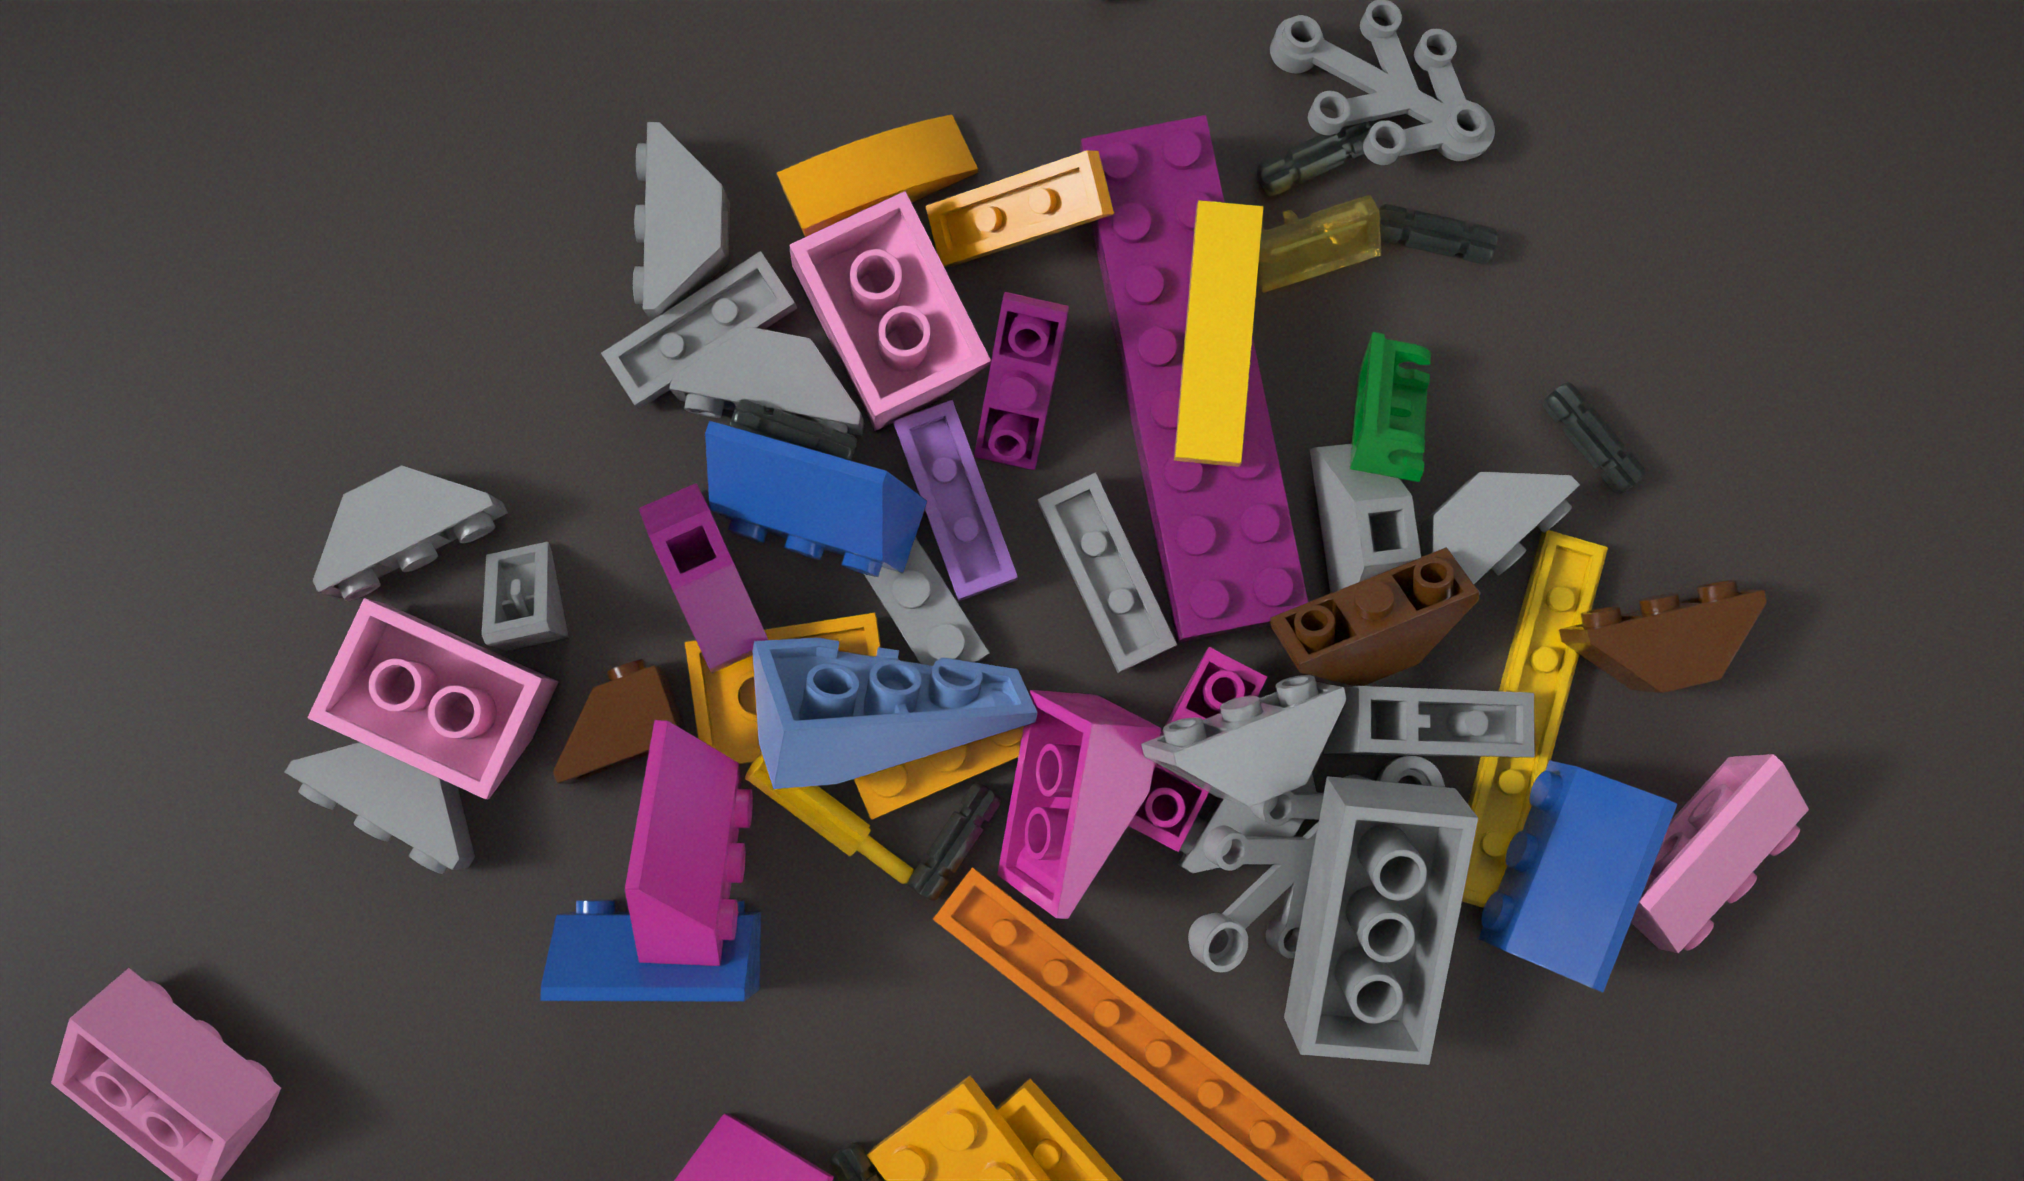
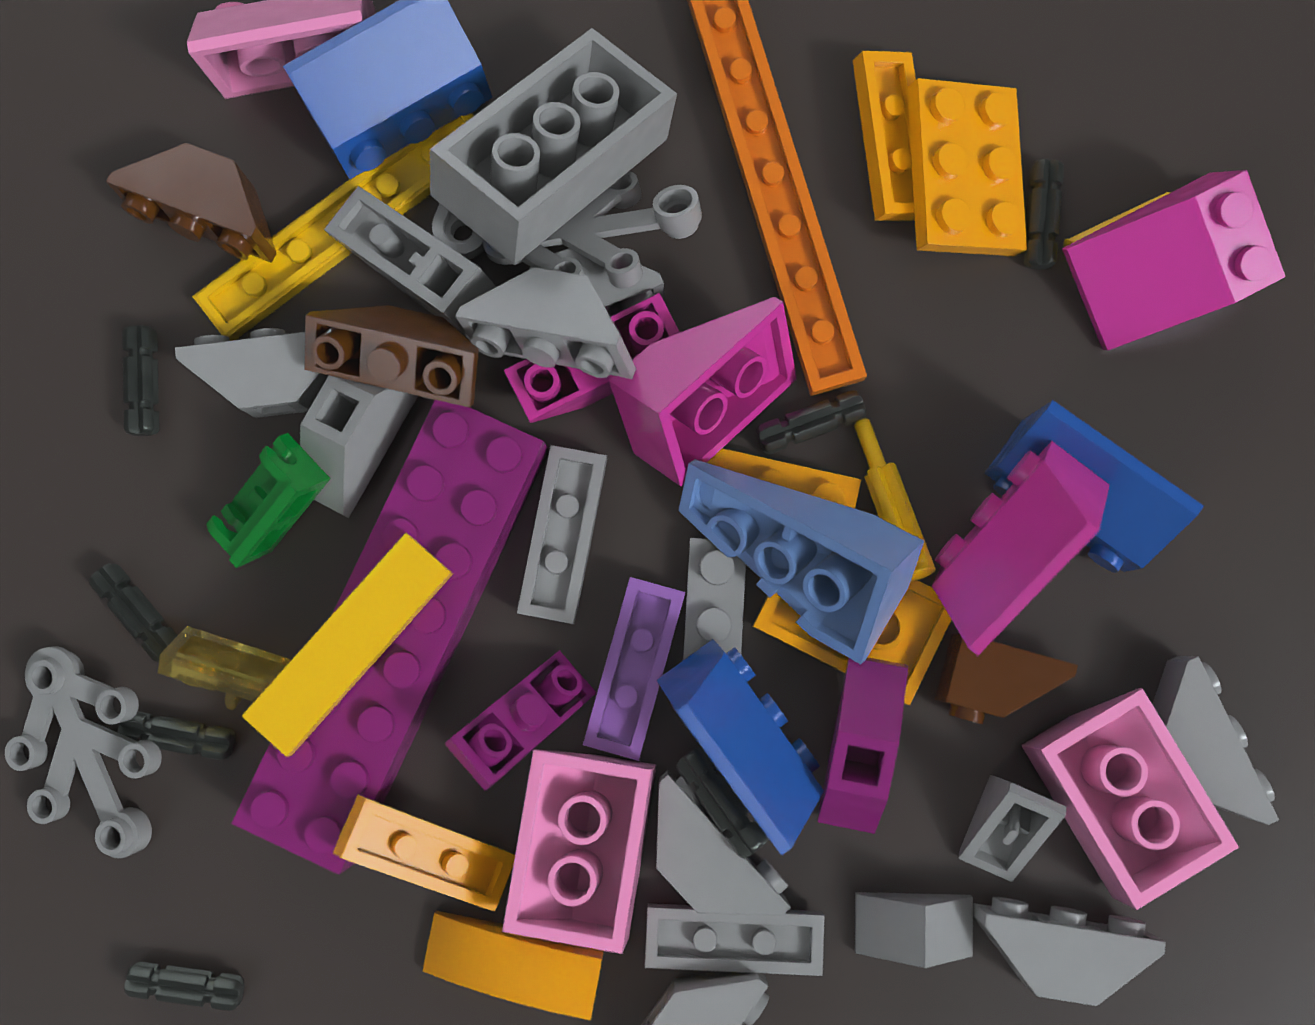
camera: 140 degrees left, 0 degrees up
(546, 453) = (914, 927): none -> light grey slope

